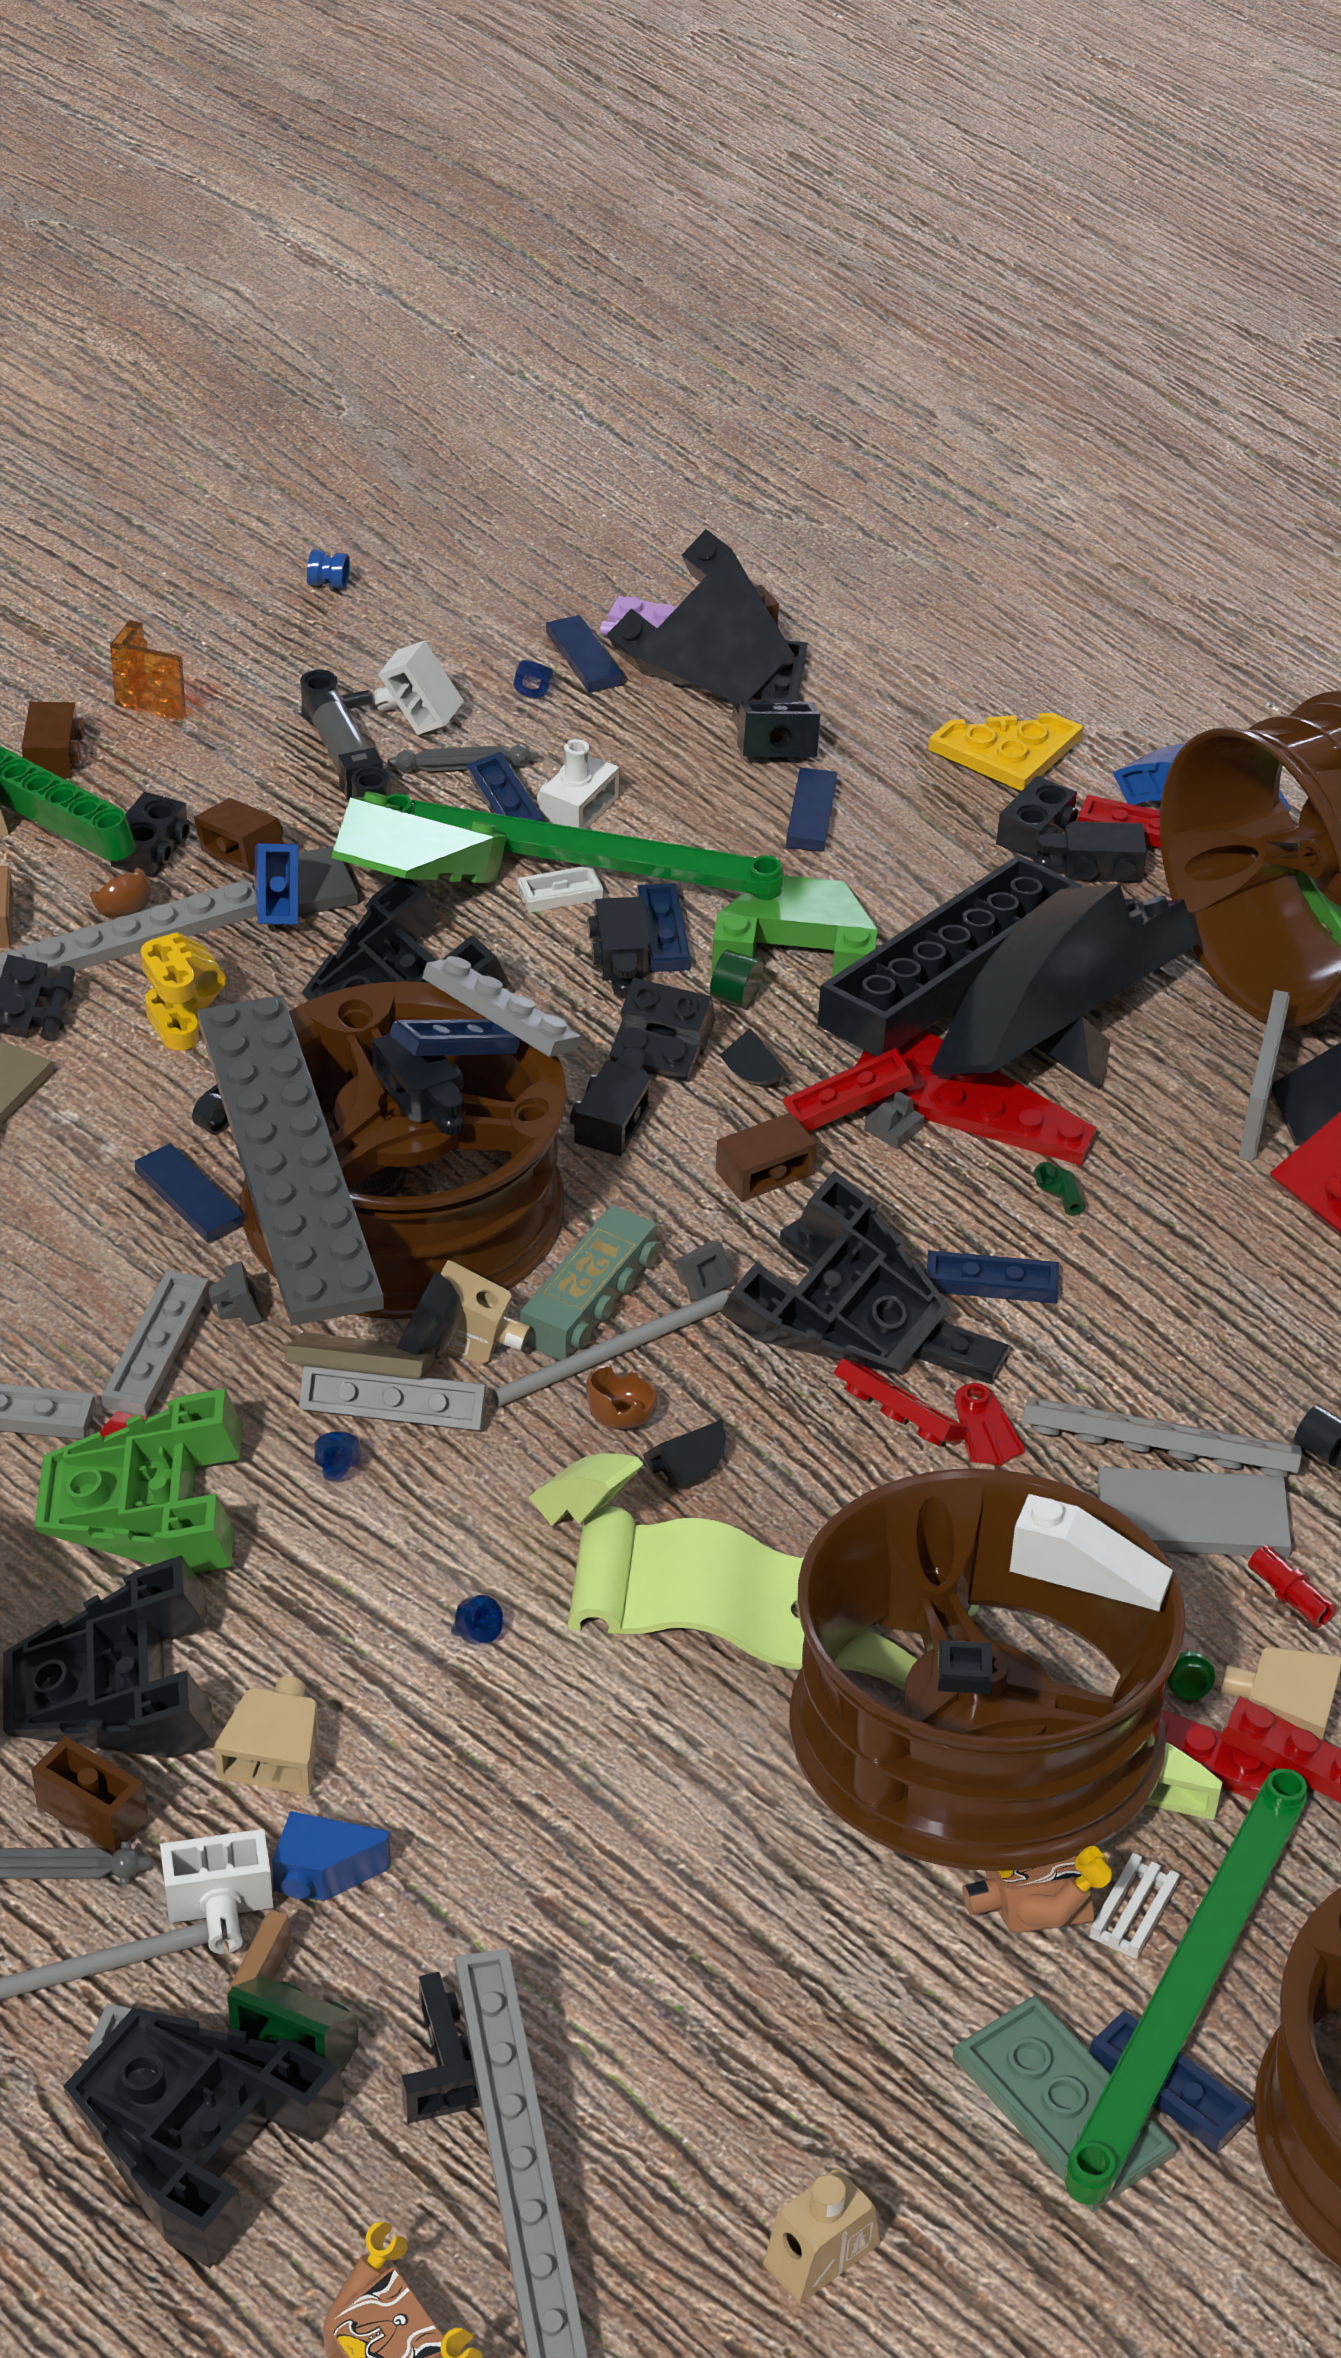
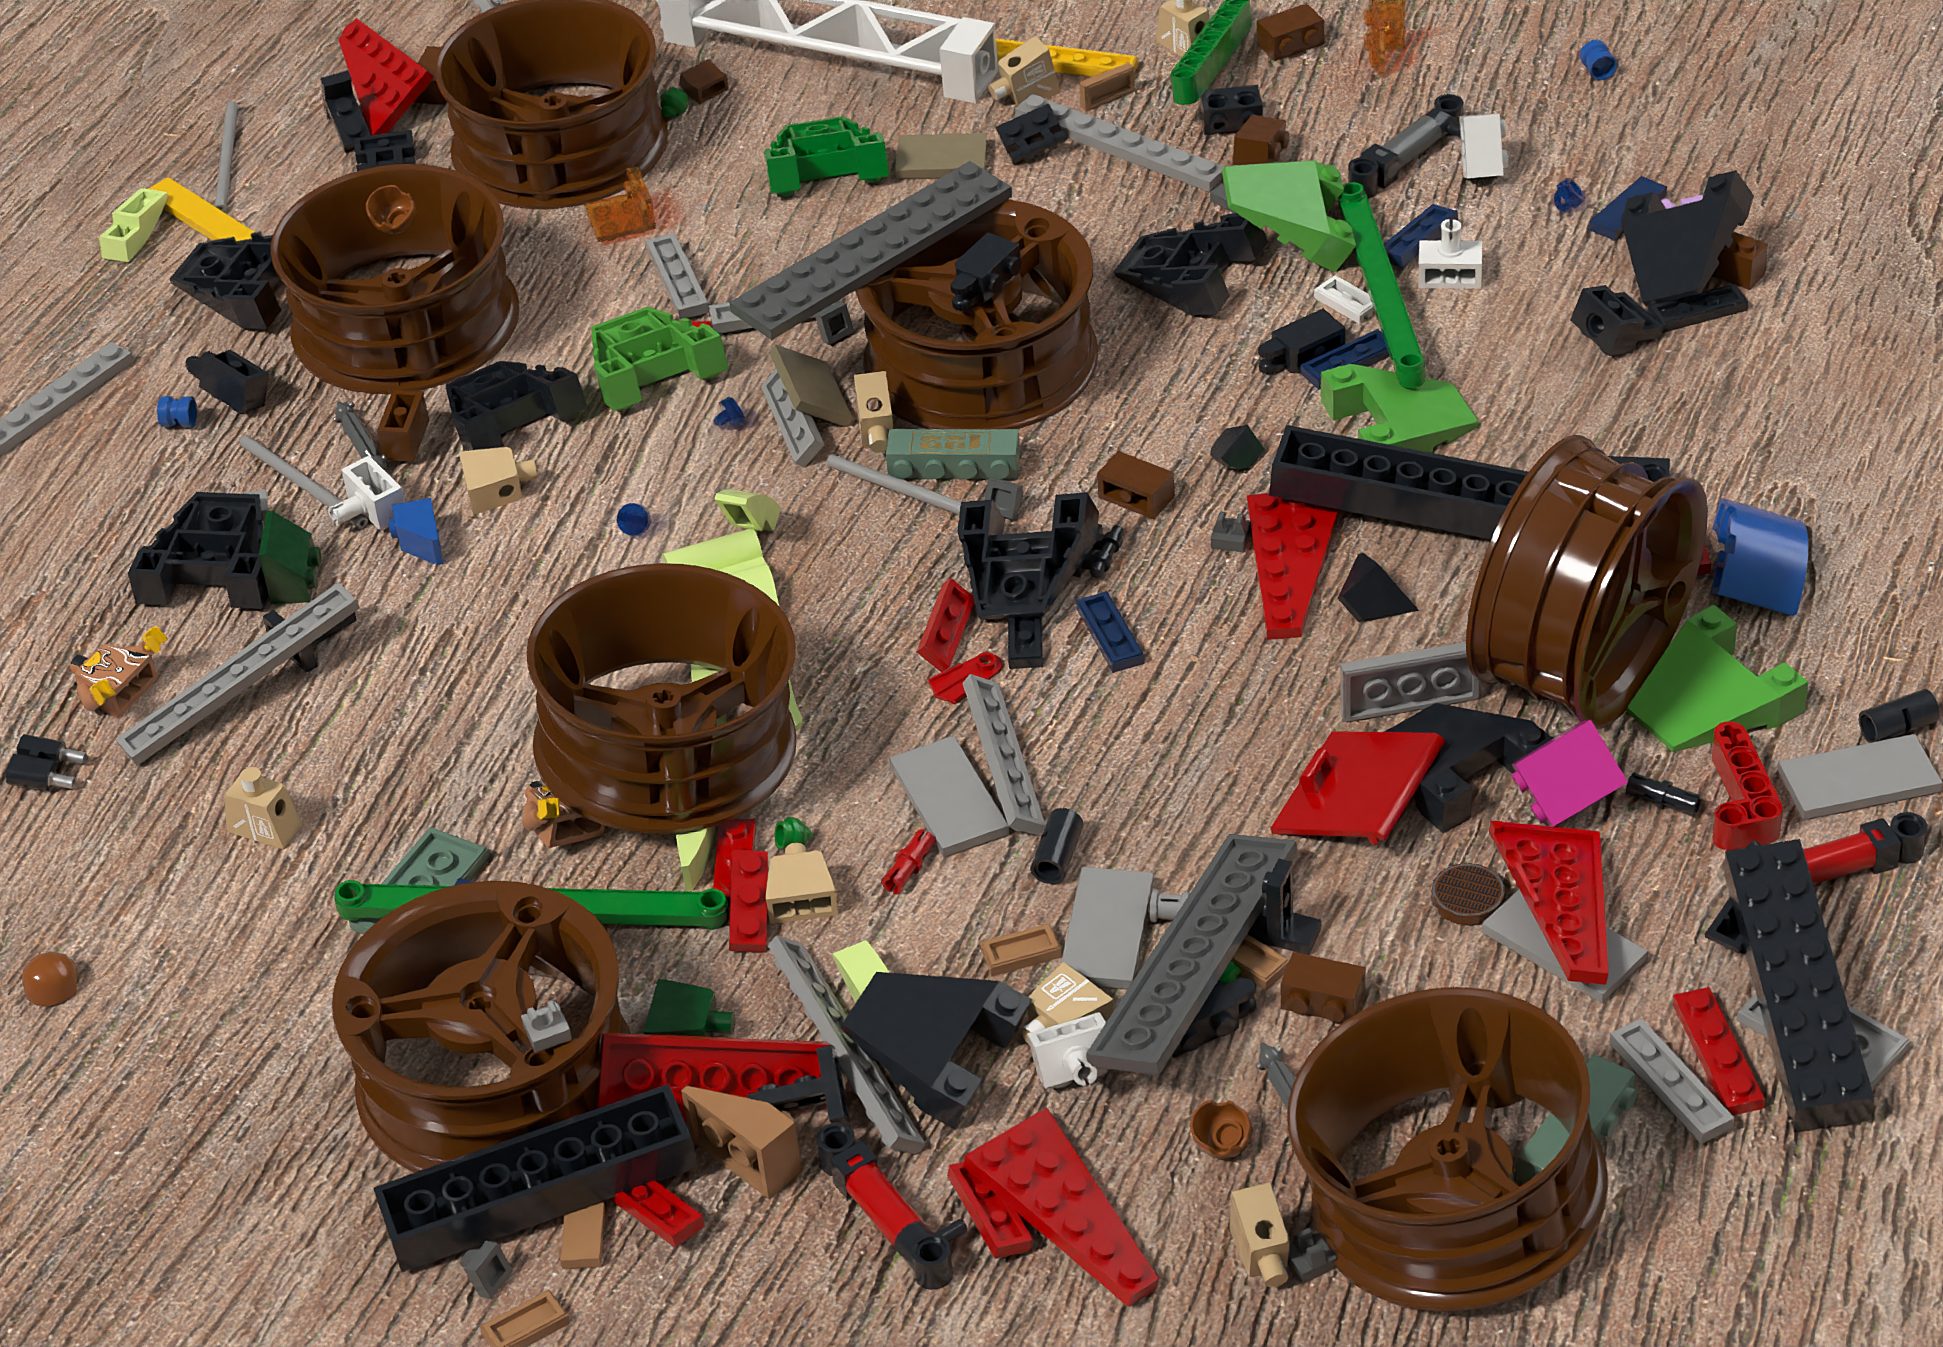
camera: 70 degrees right, 0 degrees up
(123, 895) = (1156, 124): dark orange hair -> none
(181, 983) = (1082, 190): yellow piece -> none
(265, 1951) = (336, 536): medium nougat tile -> none
(276, 884) = (1206, 177): blue slope -> none
(434, 1318) = (837, 388): black brick -> none
(453, 1037) = (1015, 262): dark blue tile -> none
(456, 758) = (1441, 197): dark grey wheel -> none
(502, 1007) = (1074, 274): light grey plate -> none
(613, 1104) = (1137, 401): black hinge -> none
(620, 1400) = (856, 502): dark orange hair -> none
(667, 1025) = (1224, 393): black brick -> none
(688, 1455) = (830, 551): black brick -> none
(736, 978) = (1307, 405): dark green piece -> none
(811, 809) = (1547, 376): dark blue tile -> none
(849, 1090) = (1227, 494): red plate -> none
(965, 1667) = (585, 648): black tile -> none
(1006, 747) = (1718, 444): yellow plate -> none
(1057, 968) = (1407, 530): black slope -> none
(1061, 1184) = (1229, 632): dark green arm -> none
(1082, 1553) = (712, 668): white slope -> none
(1149, 1875) = (587, 872): white tile -> none

